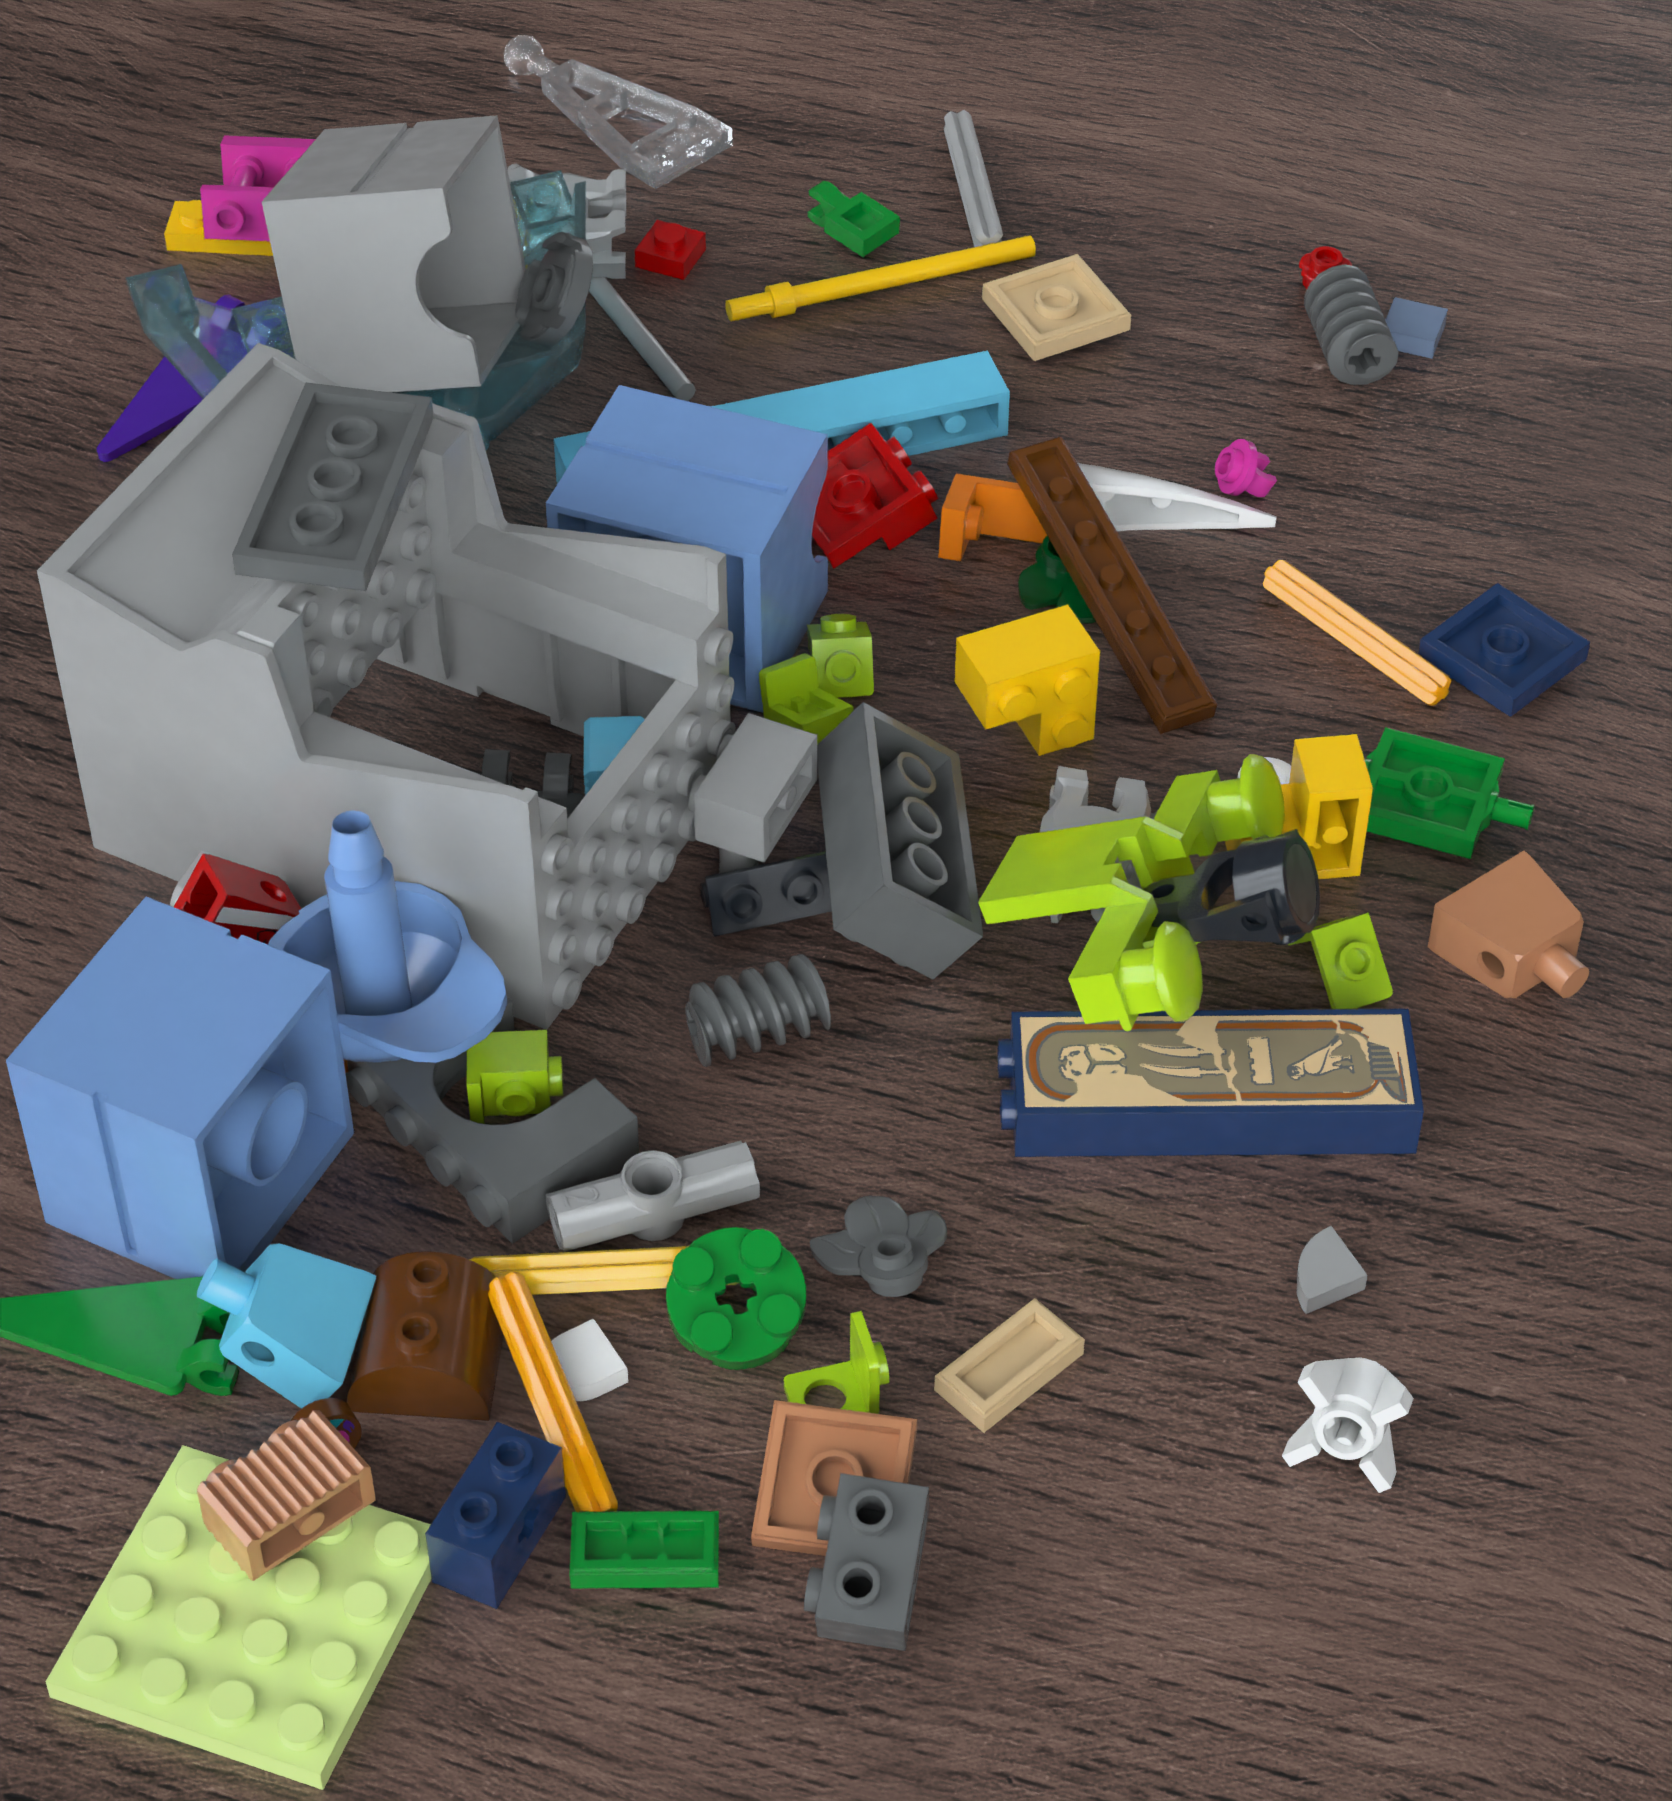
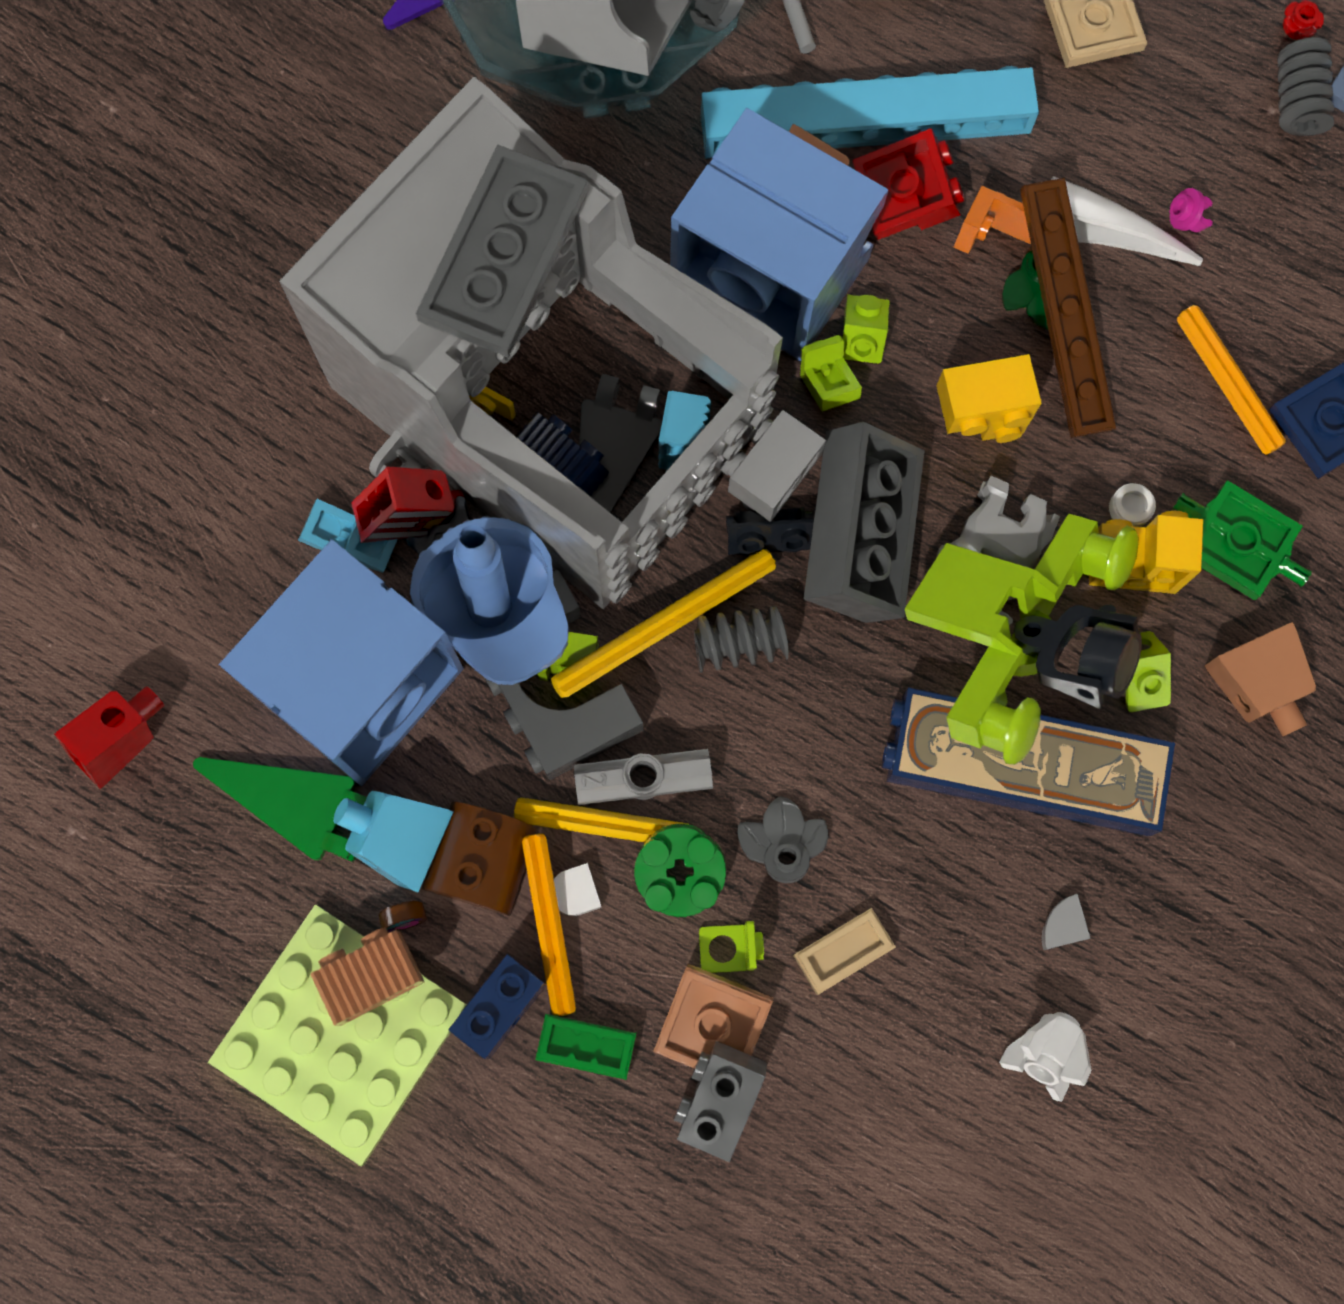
camera: 10 degrees right, 30 degrees up
(636, 1004) = (662, 623): none -> yellow axle

